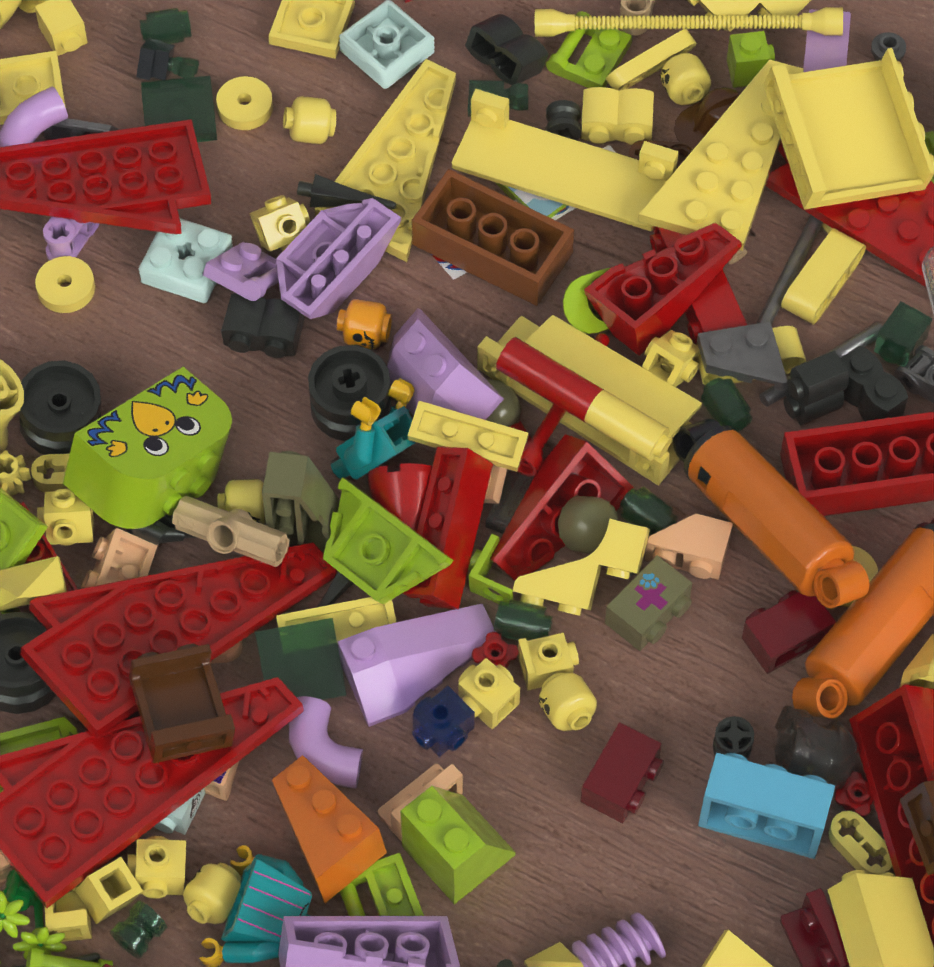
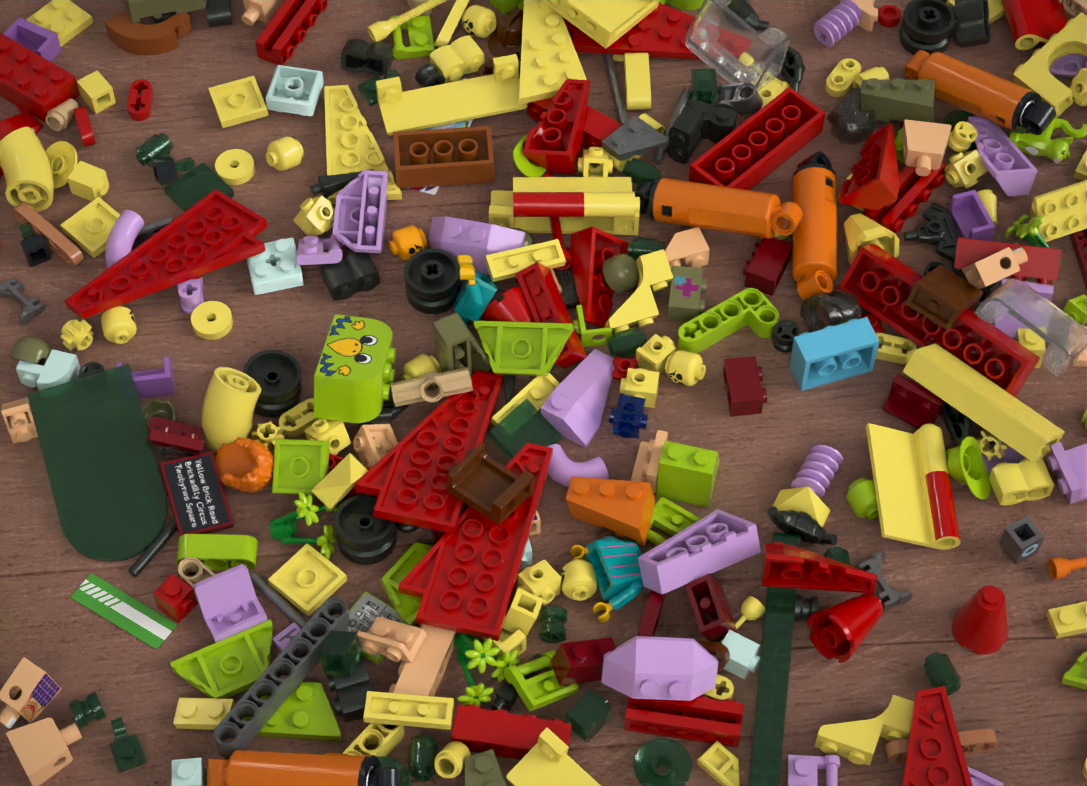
camera: 35 degrees left, 5 degrees down
(664, 677) = (728, 318): none -> lime beam

